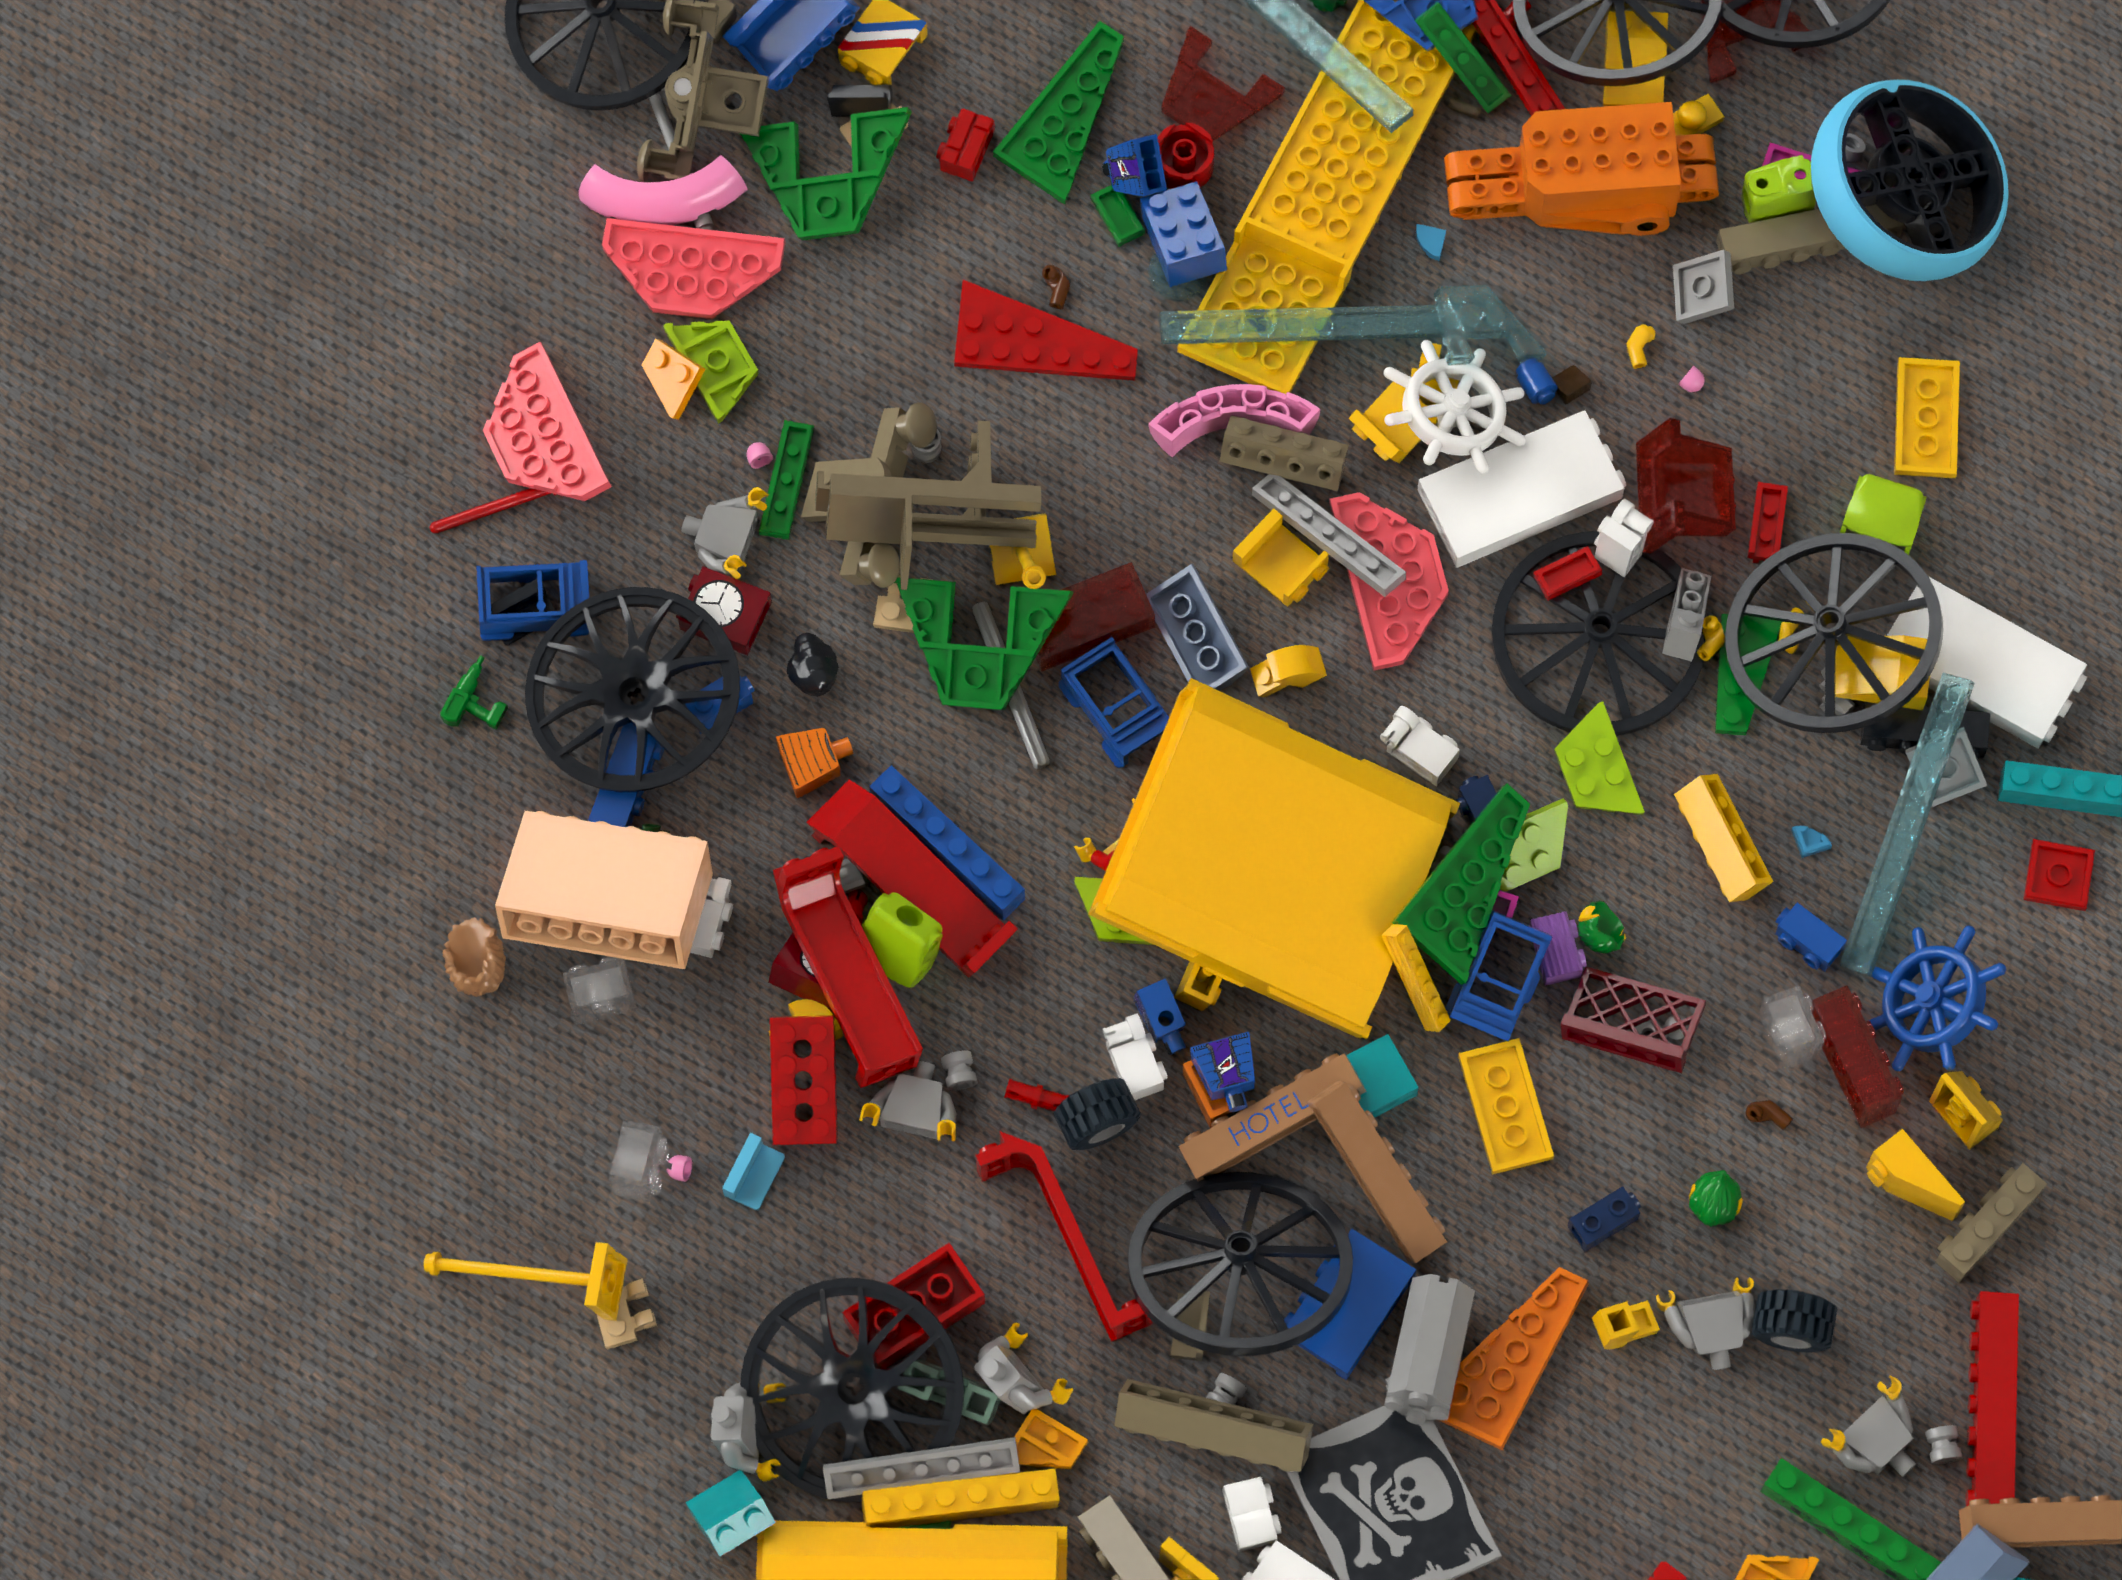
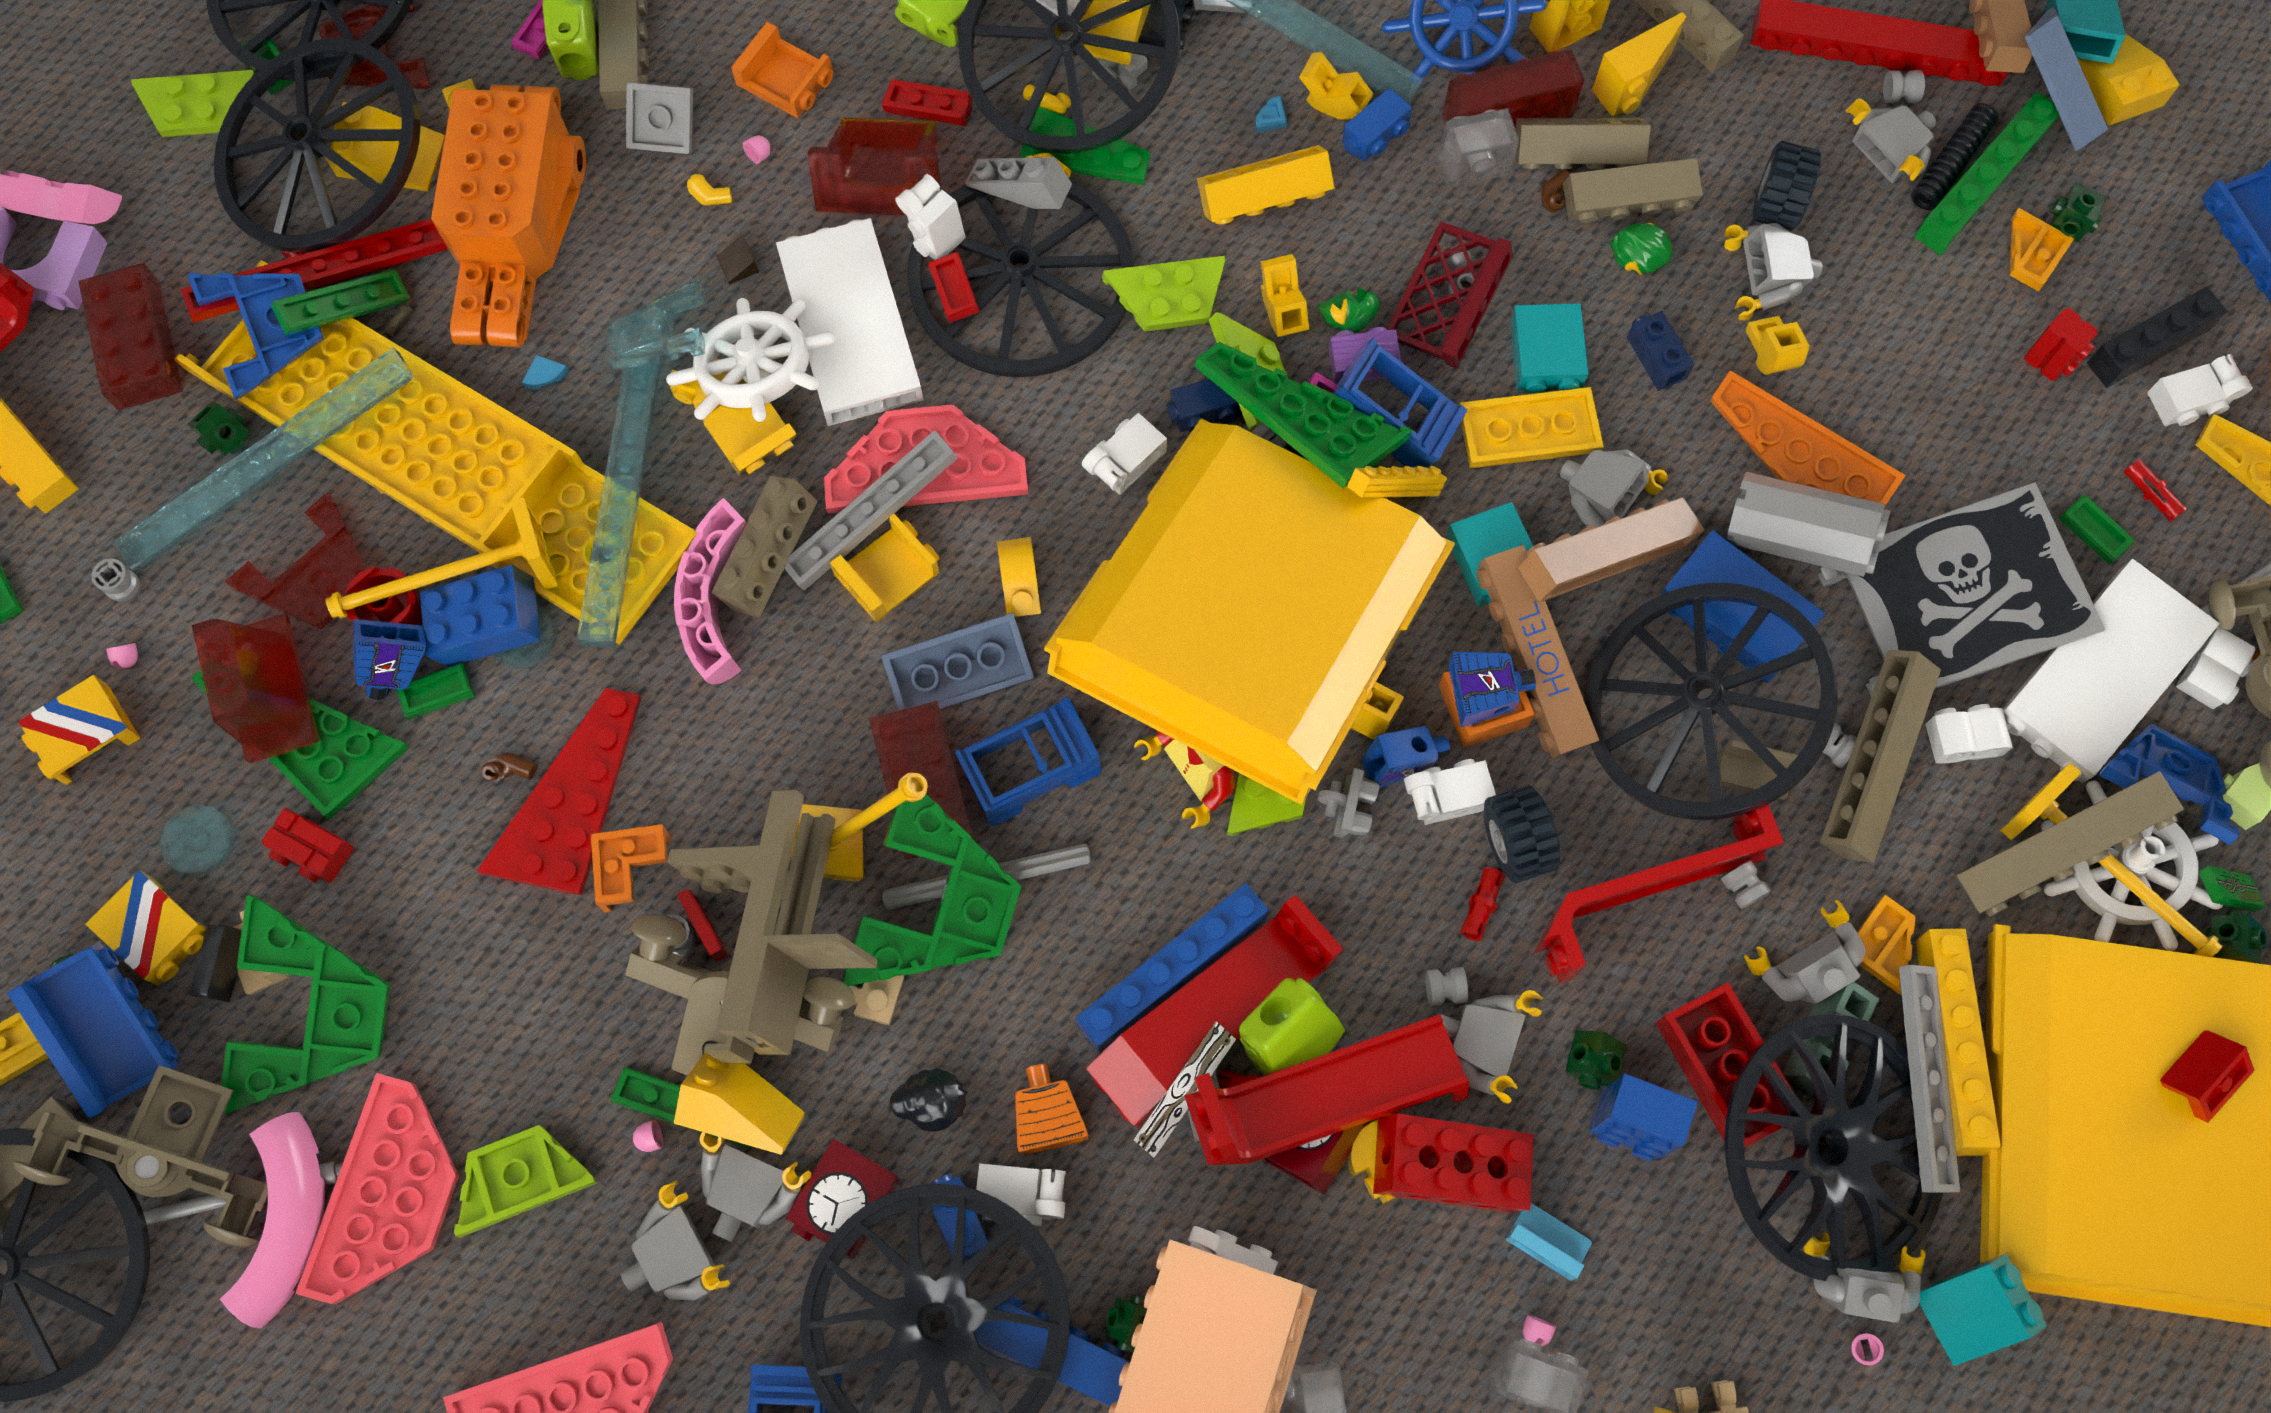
camera: 85 degrees left, 0 degrees up
(668, 488) = (672, 1252): none -> light grey torso
(672, 376) = (525, 1232): light orange wing -> none
(689, 1430) = (1875, 1346): none -> bright pink hinge
(745, 745) = (1025, 1189): none -> white hinge
(785, 514) = (736, 1105): none -> yellow slope
(853, 861) = (1173, 1104): none -> sticker
(857, 1225) = (1642, 1118): none -> blue brick
(908, 1196) = (1595, 1059): none -> dark green brick
(940, 461) = (702, 925): none -> red tile
(962, 60) = (197, 840): none -> clear light blue tile
(982, 382) = (616, 854): none -> orange panel
(1082, 1319) = (1746, 876): none -> light grey wheel
(1095, 71) = (256, 685): none -> clear red windscreen
(1099, 975) = (1354, 790): none -> light grey hips
(1246, 260) = (530, 545): none -> yellow tile
(1451, 1175) = (1609, 484): none -> light grey torso
(1536, 381) = (726, 290): blue brick -> none
(1590, 1115) = (1548, 347): none -> teal brick
(1603, 869) = (1282, 296): none -> yellow brick
(1773, 1181) = (1632, 190): none -> dark tan brick
(1778, 387) = (781, 72): none -> orange panel
(1820, 1129) = (1582, 142): none -> dark tan brick
(1841, 890) = (1334, 93): none -> yellow brick
(1871, 1498) = (1955, 156): none -> black piece

